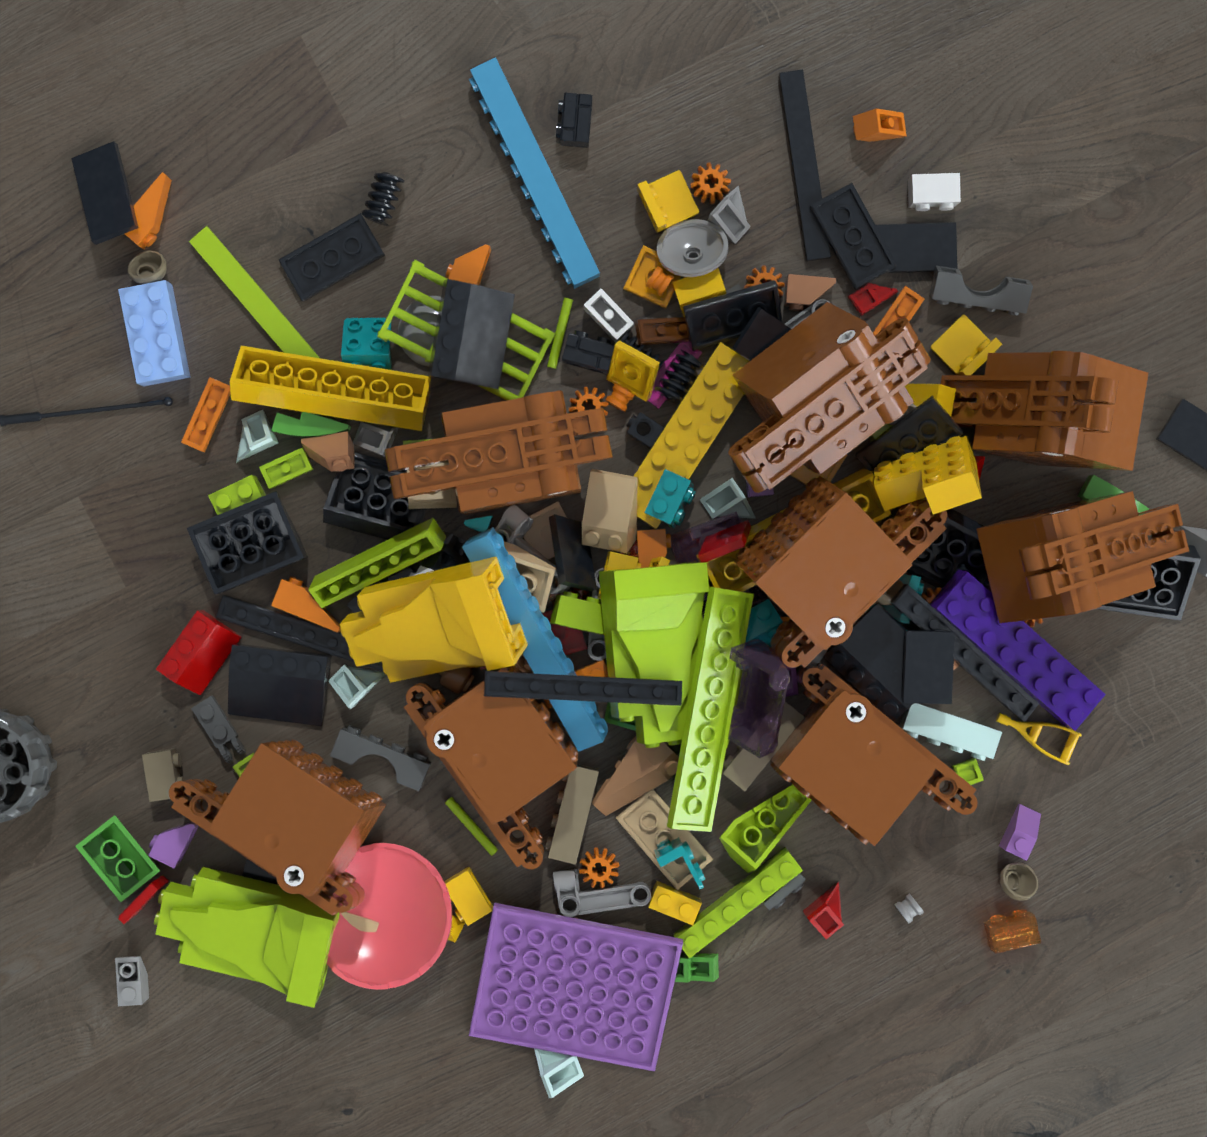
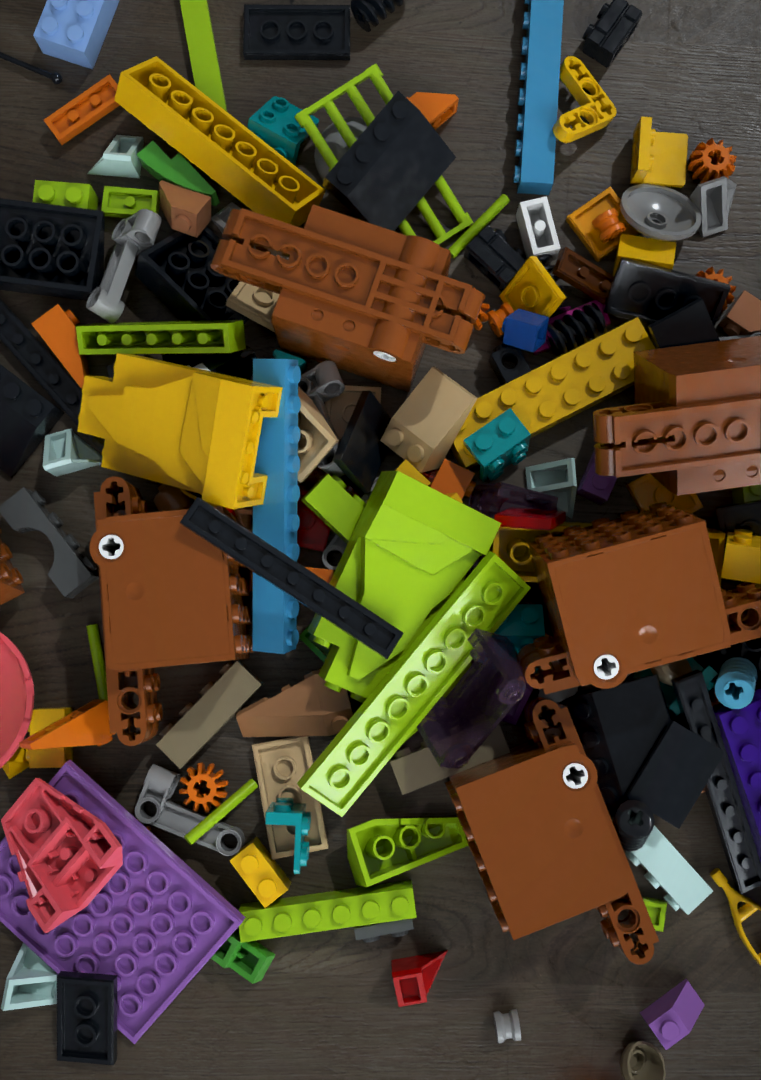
camera: 25 degrees right, 5 degrees down
(304, 497) = (131, 238): none -> light grey piece
(489, 874) = (81, 727): none -> orange slope
(526, 968) = (61, 853): none -> coral wedge
(595, 195) = (594, 108): none -> yellow beam
(611, 1072) = (87, 1018): none -> black tile
(622, 877) = (221, 811): none -> lime bar
(642, 401) = (525, 330): none -> blue brick
(910, 719) = (633, 824): none -> black piece
(937, 576) = (736, 683): none -> medium azure piece

